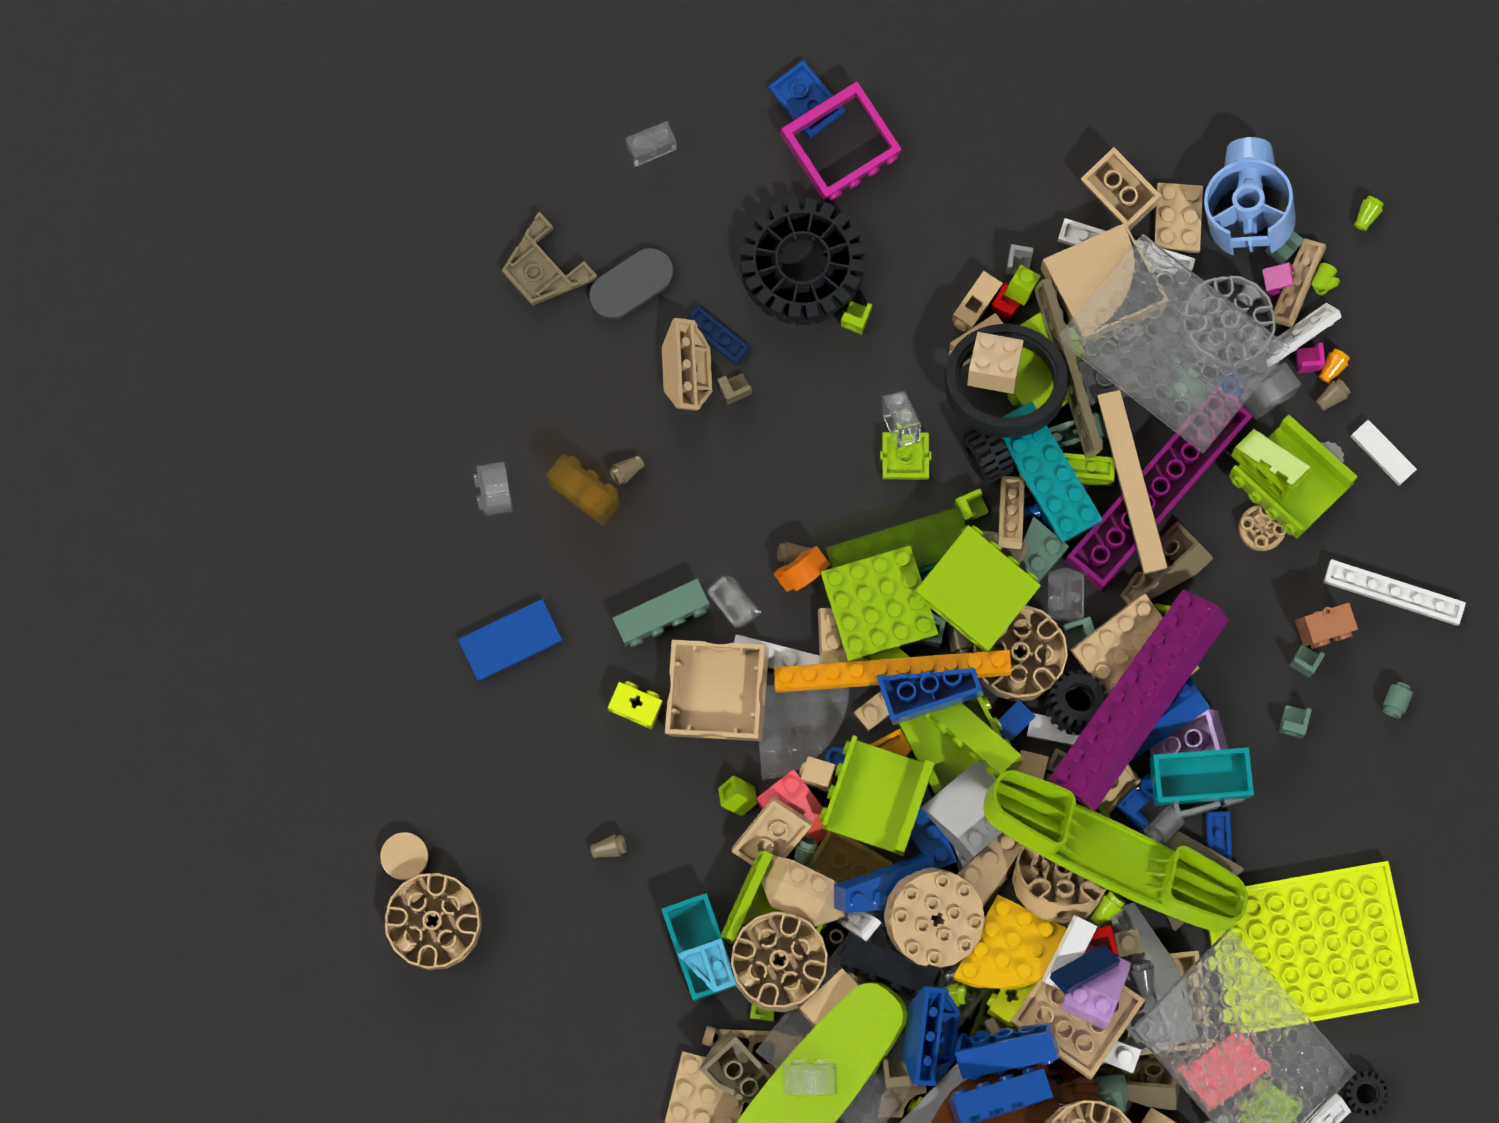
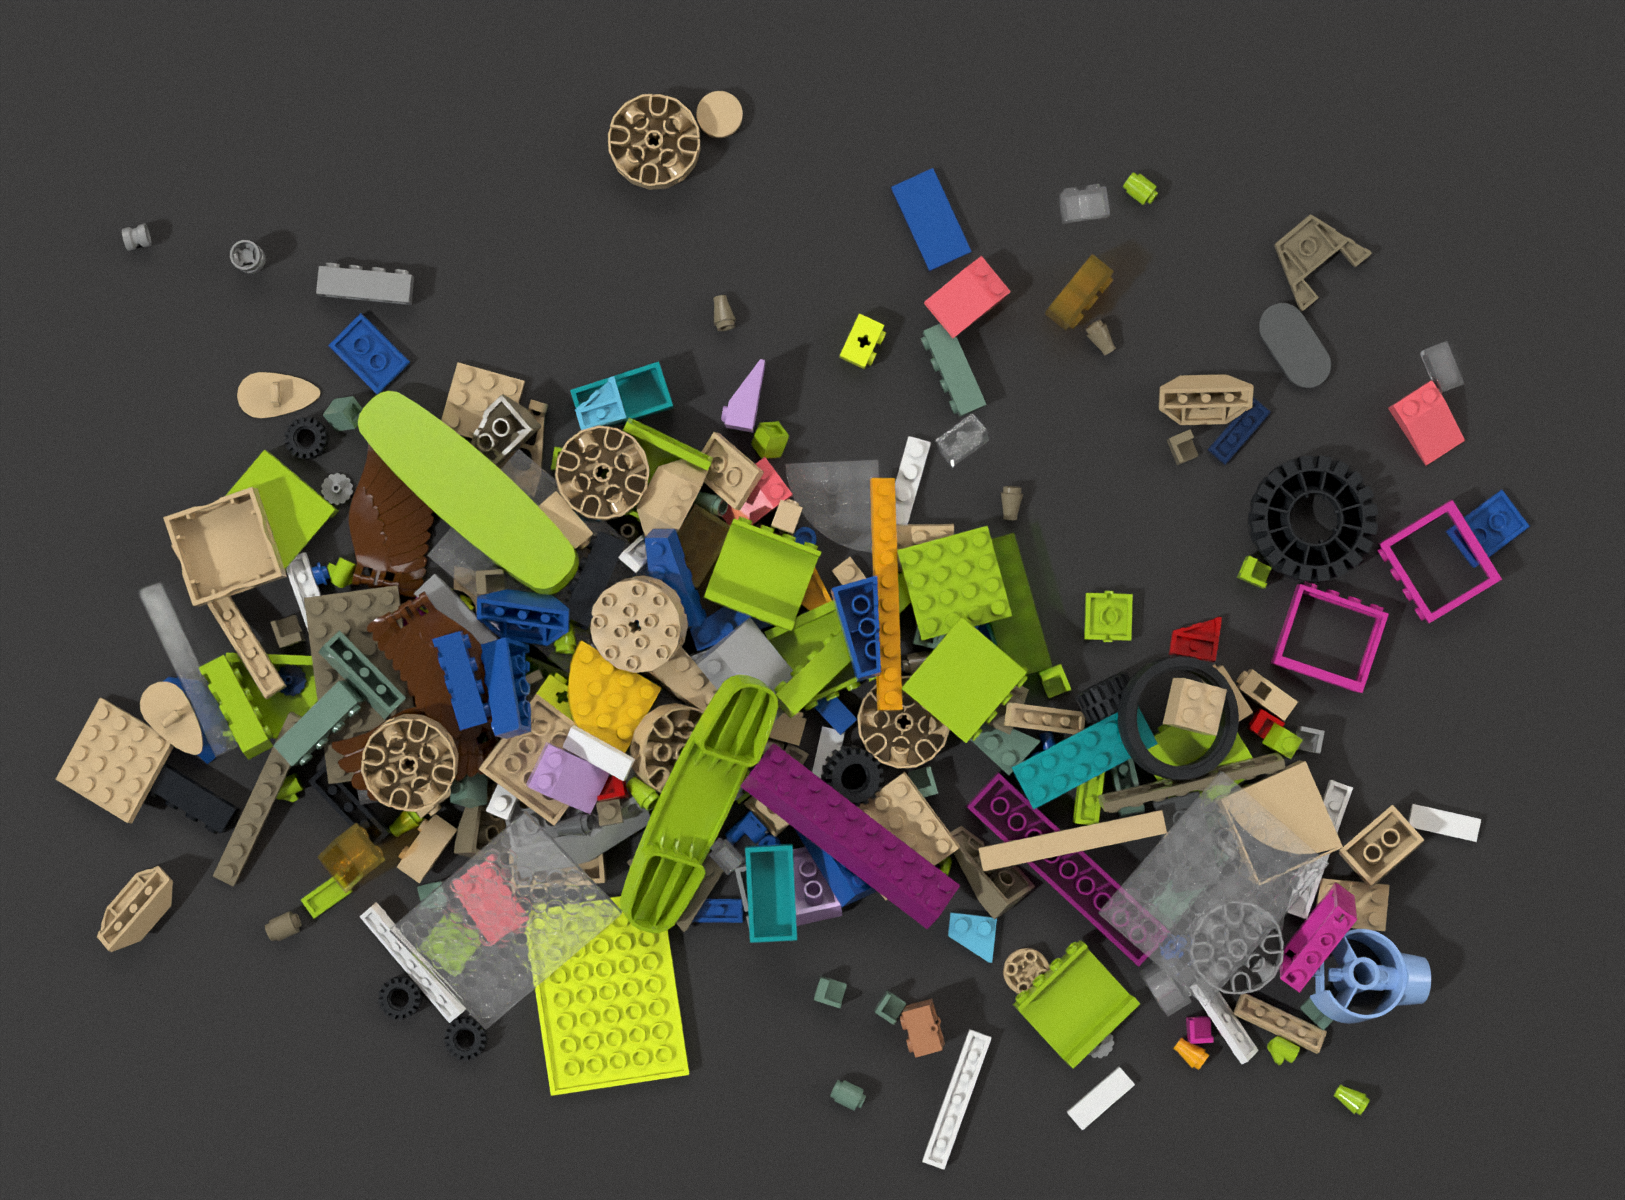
camera: 90 degrees right, 10 degrees up
(477, 434) = (1140, 188): none -> lime brick
(589, 599) = (967, 297): none -> coral slope
(703, 157) = (1427, 422): none -> coral slope
(704, 821) = (744, 403): none -> lavender slope
(717, 690) = (873, 421): tan tile -> none
(802, 569) = (992, 509): orange brick -> none
(809, 1078) = (487, 498): clear brick -> none
(901, 419) = (1144, 612): clear brick -> none
(926, 369) = (1197, 641): none -> red wing
(927, 204) = (1352, 604): none -> dark pink window
(1065, 595) = (960, 770): clear brick -> none
(1085, 969) = (581, 766): dark blue tile -> none
(1094, 133) = (1444, 822): none -> white tile
(1205, 251) = (1318, 936): none -> dark pink window
(1227, 579) = (974, 933): none -> medium azure wing
(1270, 464) = (1088, 981): lime wedge -> none
(1278, 277) = (1283, 1002): panel -> none
(1334, 394) = (1160, 1050): dark tan cone -> none

